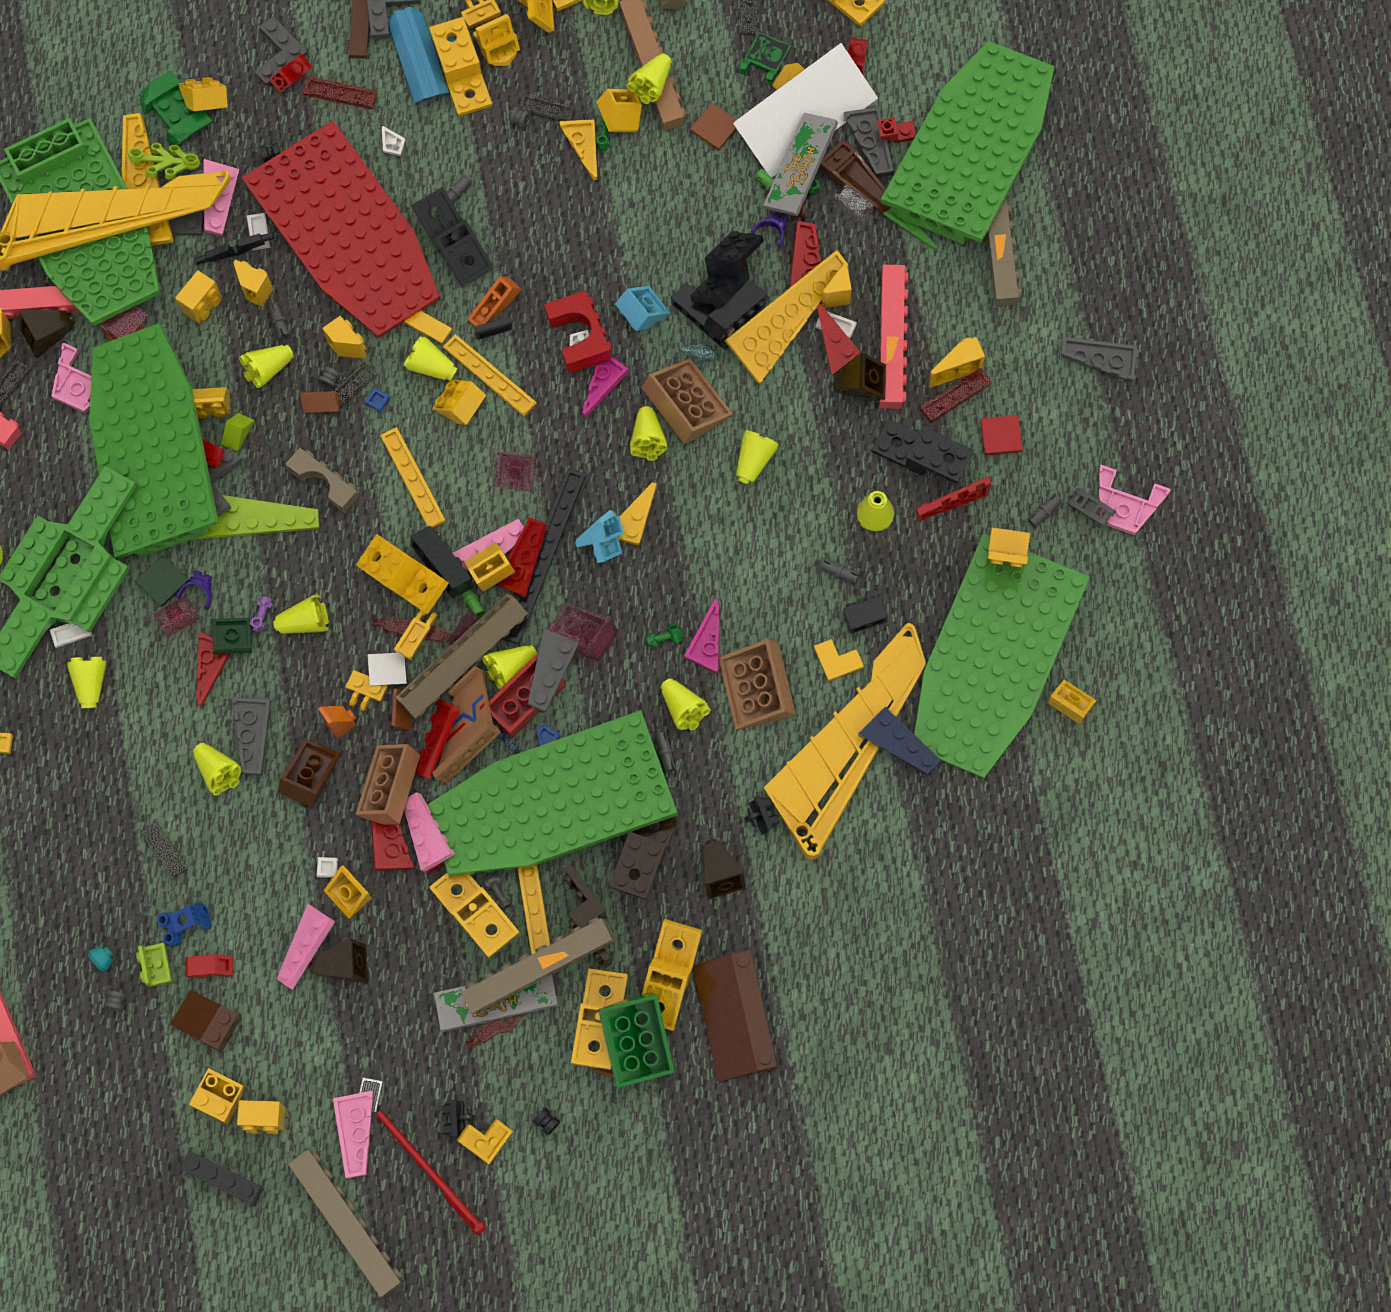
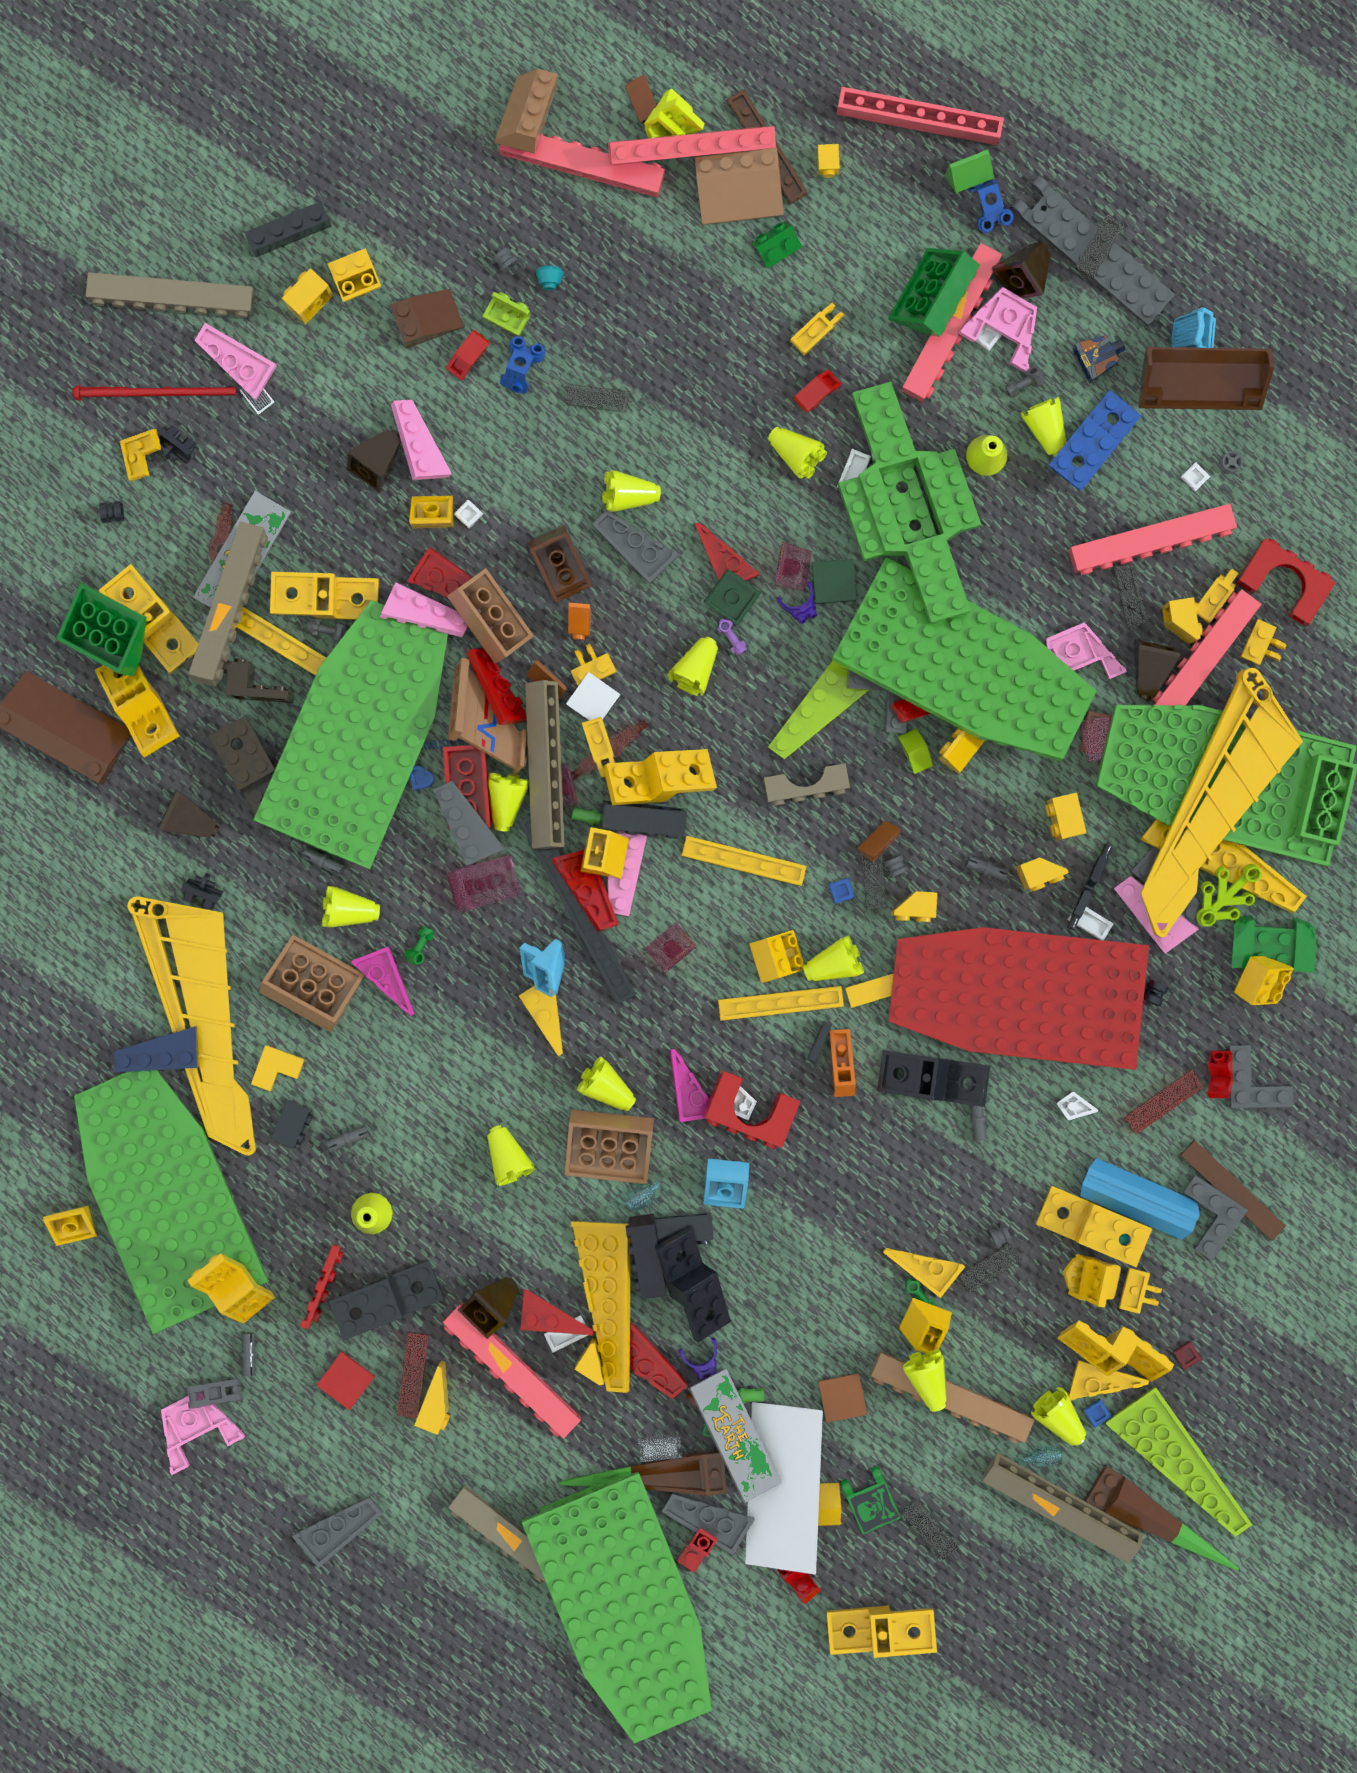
camera: 125 degrees right, 15 degrees up
(32, 702) = (817, 390): none -> red slope
(265, 363) = (954, 823): neon yellow cone -> none

